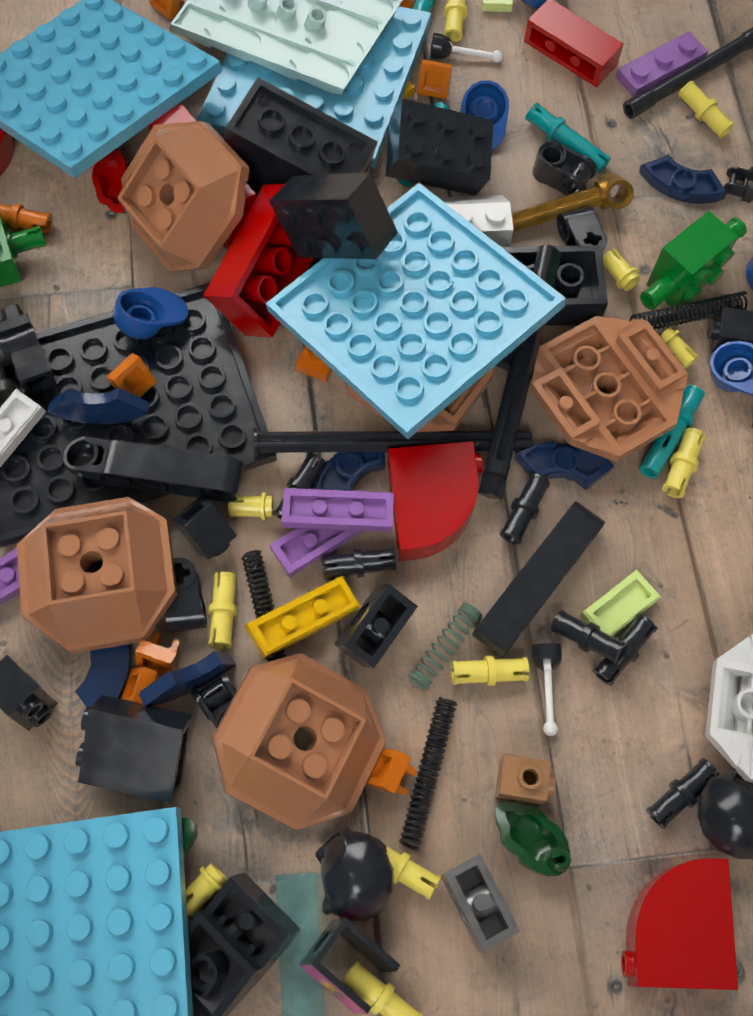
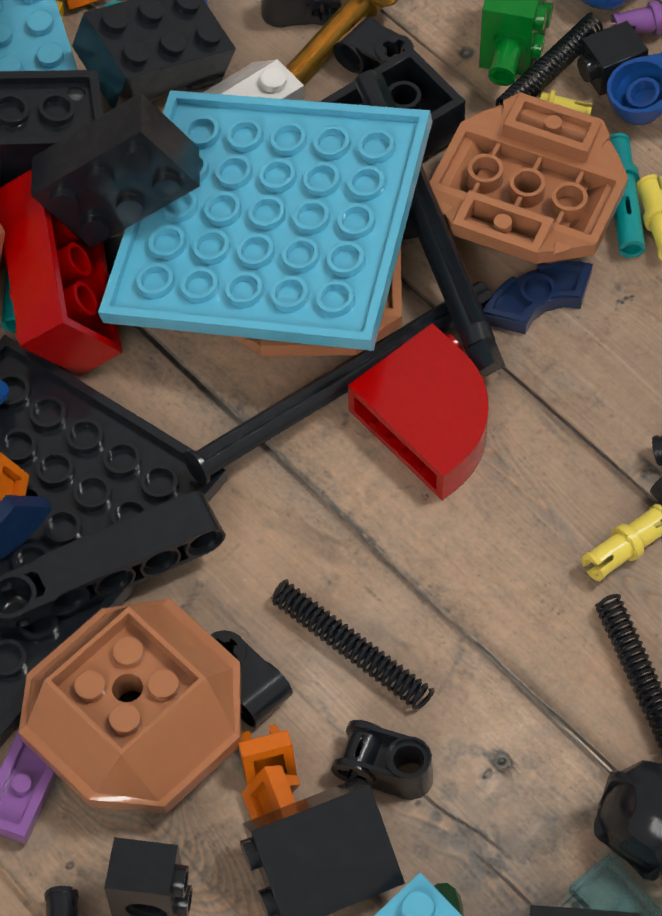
camera: 30 degrees left, 10 degrees down
(106, 674) = (219, 812): dark blue tile -> none
(185, 680) = (319, 752): dark blue tile -> none
(205, 528) = (211, 590): black brick -> none
(222, 610) = (296, 665): light yellow pin -> none
(252, 506) = (242, 540): light yellow pin -> none
(259, 750) = (468, 771): nougat piece -> none
(302, 617) = (390, 614): yellow tile -> none
(305, 477) = (278, 490): black pin -> none
(306, 546) = (343, 518): medium lavender plate -> none
(312, 365) = (186, 352): orange tile -> none
(337, 510) = (344, 479): medium lavender plate -> none
(347, 468) = (310, 447): dark blue tile -> none
(358, 563) = (404, 524): black pin -> none
(375, 625) = (477, 569): black brick -> none
(389, 771) = (605, 704): orange tile -> none
(423, 681) = (561, 591): sand green piece -> none
(525, 508) = (535, 362): black pin -> none
(538, 579) = (605, 422): black beam -> none
(620, 270) = (451, 68): light yellow pin -> none

